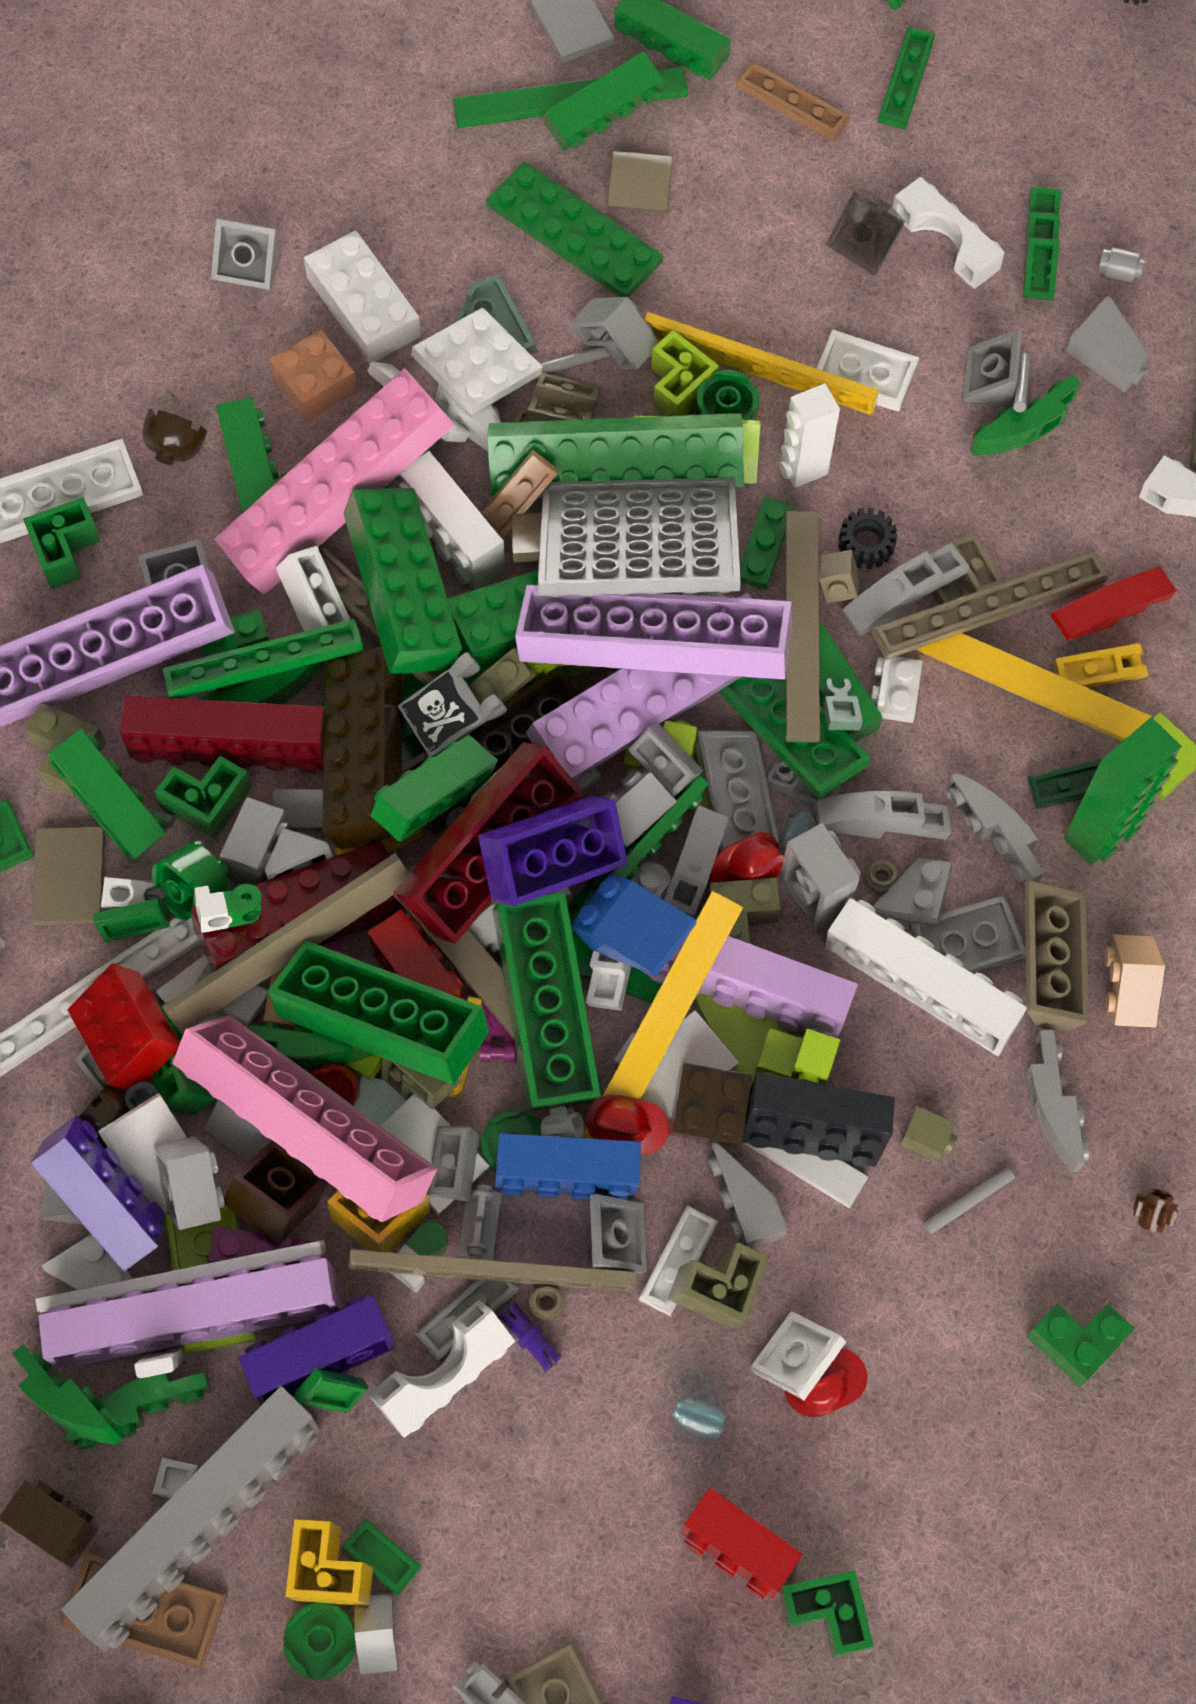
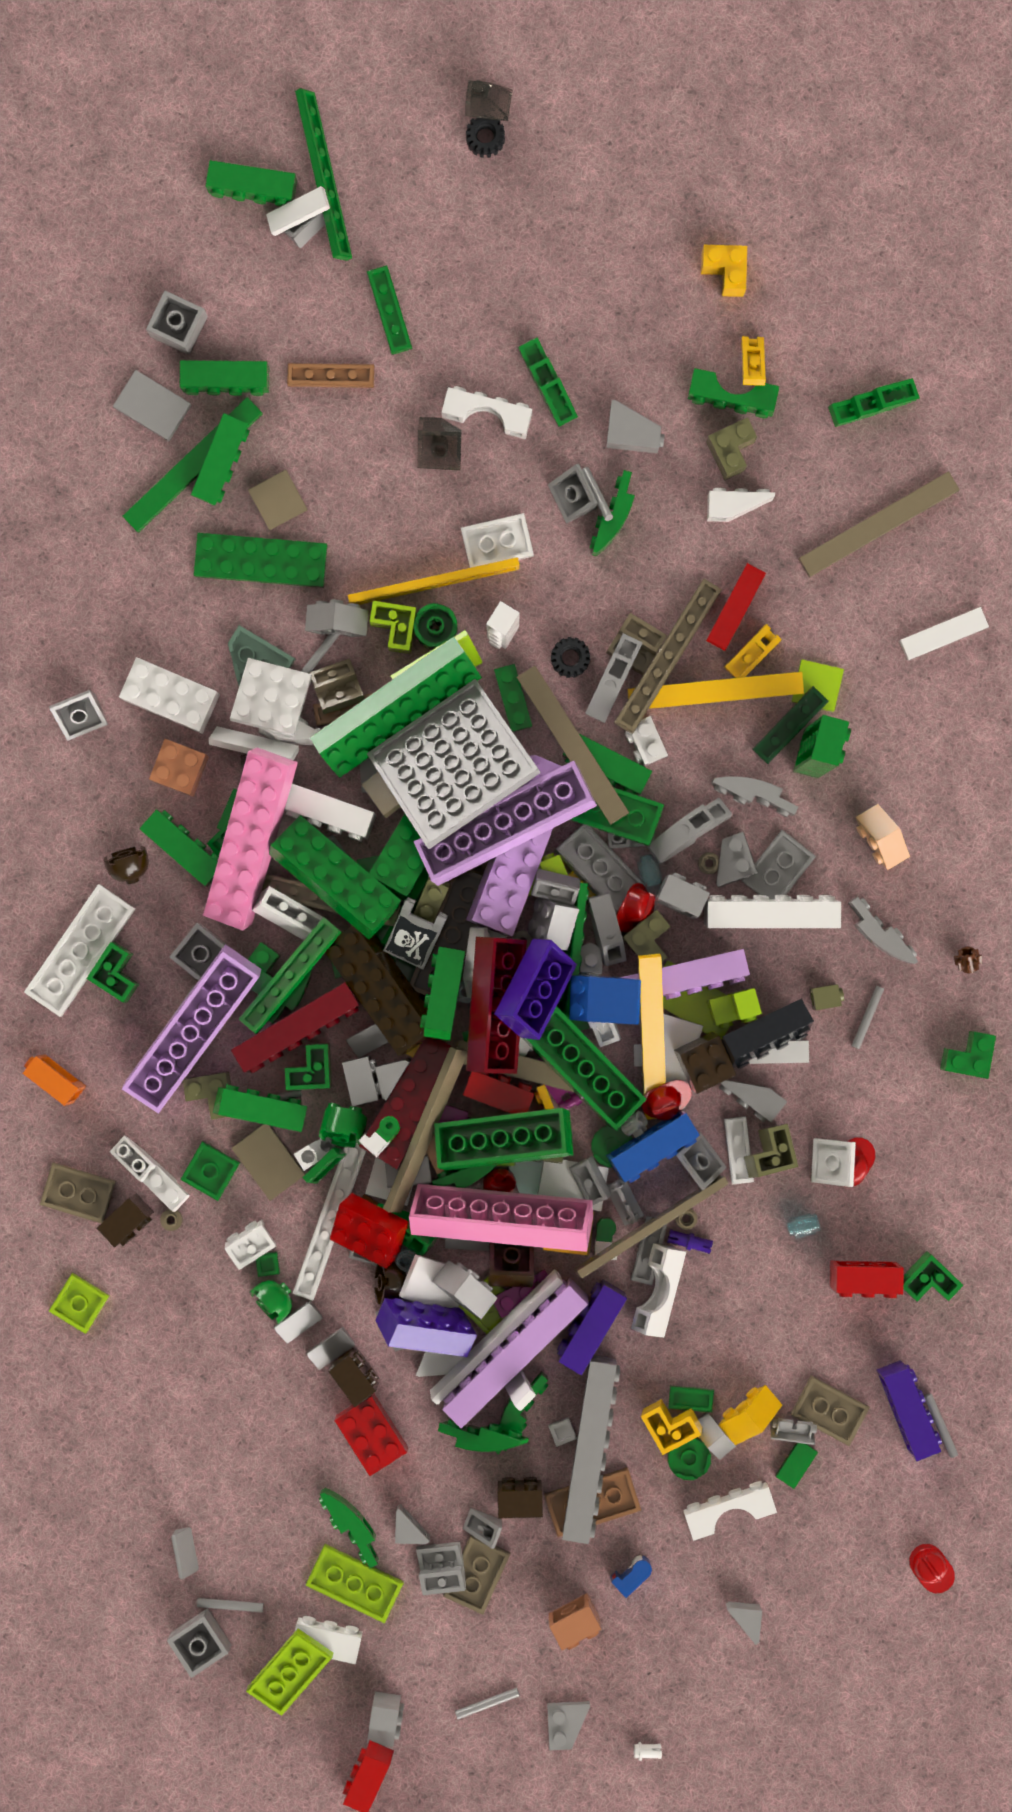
camera: 30 degrees left, 20 degrees up
(331, 1391) = (613, 1341): green tile -> none
(447, 1630) = (750, 1415): none -> yellow brick
(519, 492) = (356, 772): medium nougat plate -> none
(839, 576) = (572, 696): dark tan brick -> none
(841, 710) = (629, 786): sand green plate -> none
(1056, 957) = (834, 854): dark tan slope -> none
(1121, 264) = (604, 366): light grey brick -> none

